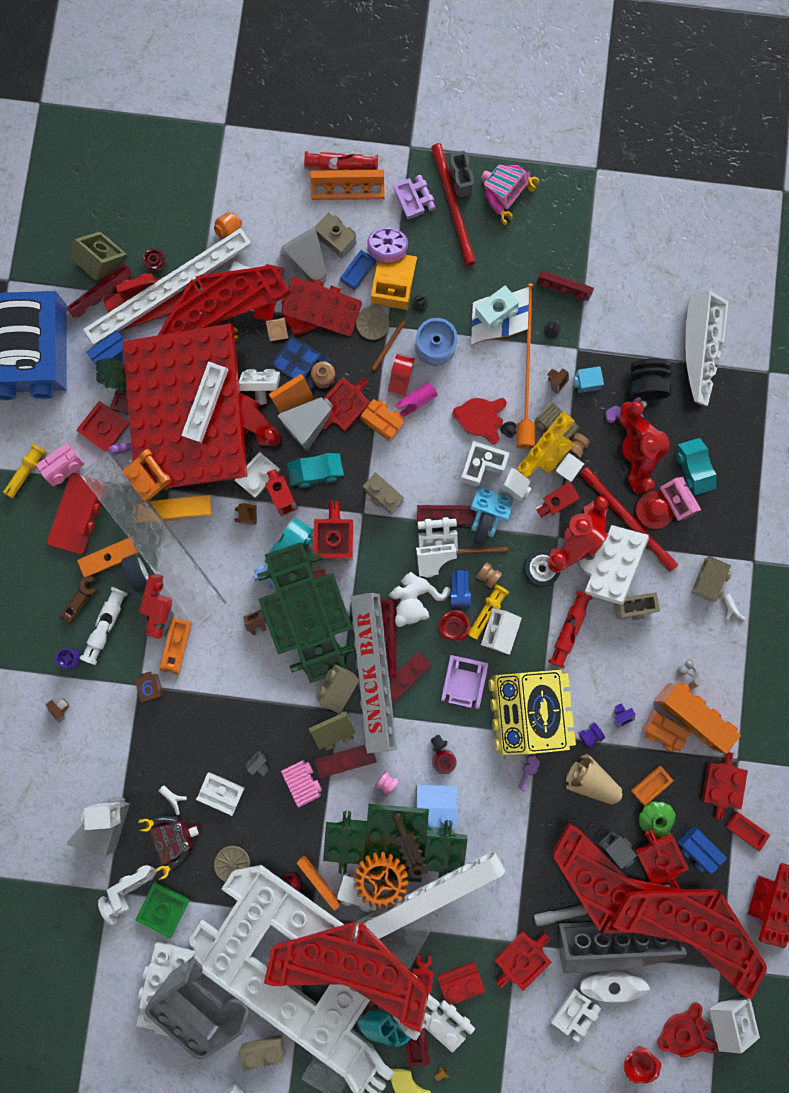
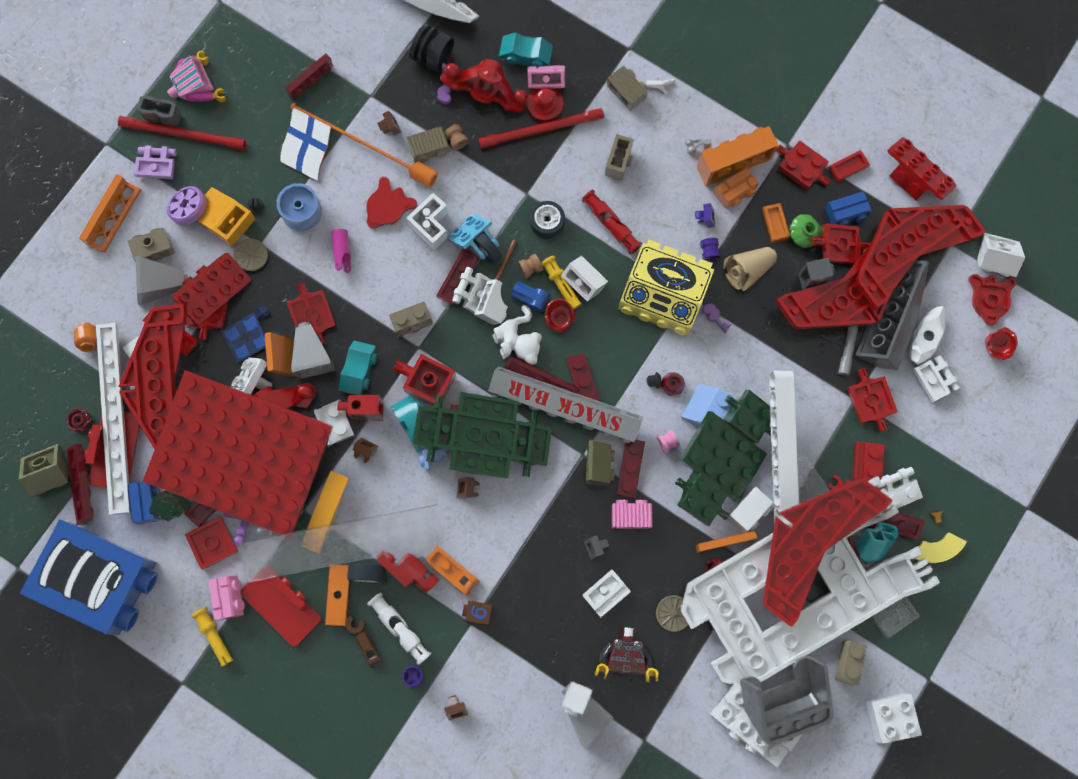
camera: 65 degrees left, 5 degrees down
(117, 902) = (661, 735): white piece -> none
(142, 480) = (282, 524): orange plate -> none
(162, 910) = (685, 695): green plate -> none
(172, 798) = (590, 639): white bar -> none
(205, 402) = (245, 427): white plate -> none
(277, 329) = (209, 340): light nougat plate -> none
(323, 374) = (274, 319): medium nougat head -> none
(337, 688) = (564, 442): dark tan brick -> none
(348, 162) = (89, 202): red piece -> none
(357, 270) = (194, 244): blue tile -> none
(382, 419) = (344, 288): orange brick -> none
(388, 345) = (278, 251): dark orange axle -> none
(388, 883) = (755, 487): orange gear -> none
(401, 374) = (311, 252): red brick -> none
(409, 847) = (734, 443): dark brown piece -> none
(464, 685) = (614, 335): lavender container -> none
(503, 299) = (292, 133): light aqua brick -> none
(508, 429) = (410, 186): black piece -> none
(516, 485) = (463, 204): white slope -> none
(549, 449) = (446, 159): yellow bracket -> none
(552, 328) = (341, 106): black piece -> none
(565, 495) = (496, 169): red torso -> none
(569, 467) = (472, 152): white panel -> none
(582, 537) = (537, 171): red piece -> none
(588, 379) = (403, 99): medium azure brick -> none
(615, 565) = (574, 157): white plate -> none

